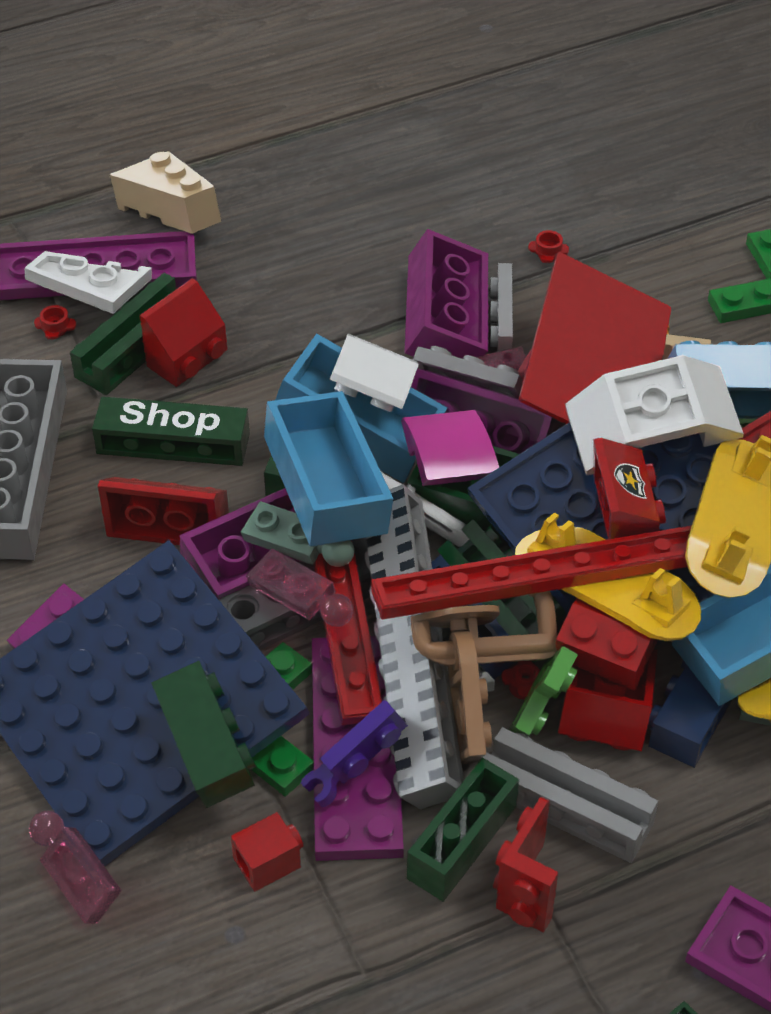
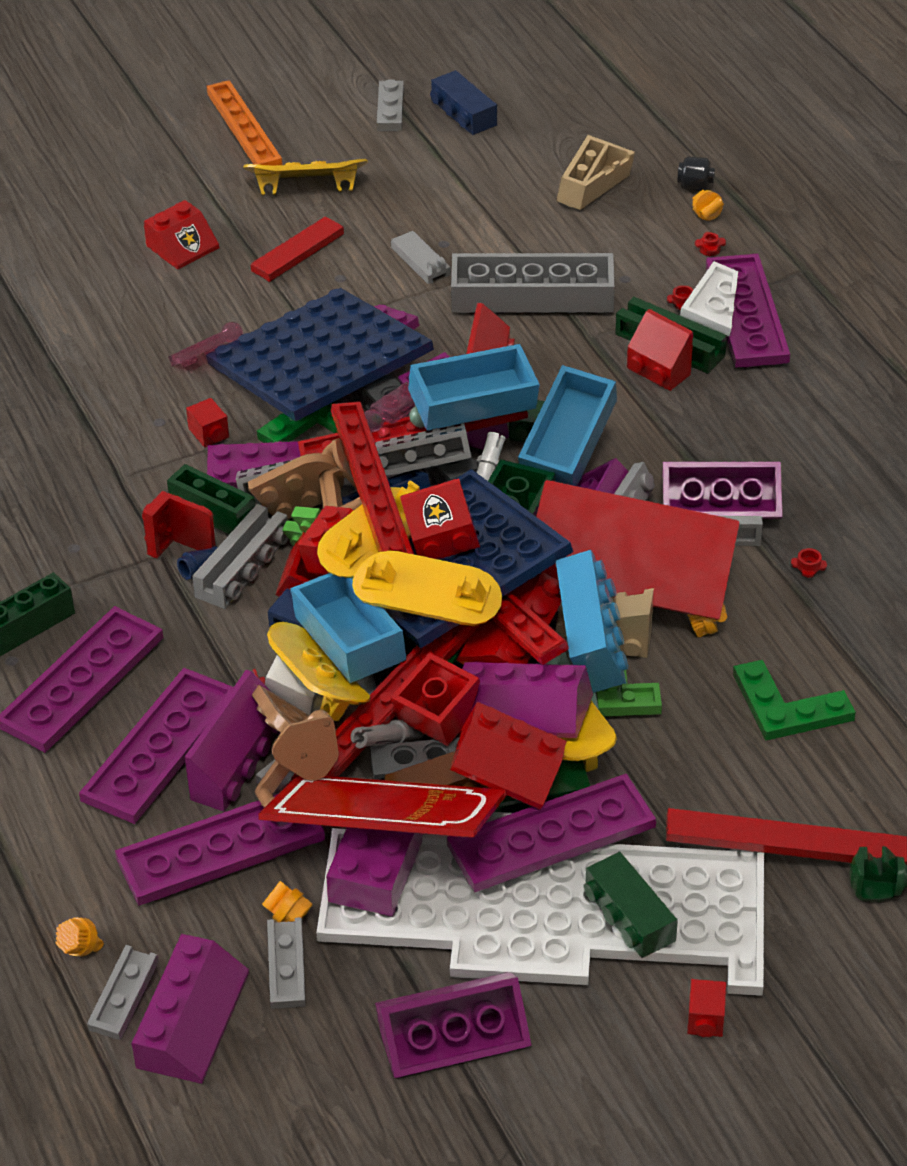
camera: 90 degrees right, 5 degrees down
(168, 191) = (827, 334): tan wedge -> none
(171, 431) = (571, 344): dark green brick -> none
(205, 733) = (270, 364): dark green brick -> none
(354, 751) = (265, 442): dark purple plate -> none
(373, 372) = (591, 414): white slope -> none
(450, 447) = (522, 467): dark pink slope -> none
(580, 852) = (192, 561): none -> dark blue cone
(654, 406) = (513, 537): white slope -> none

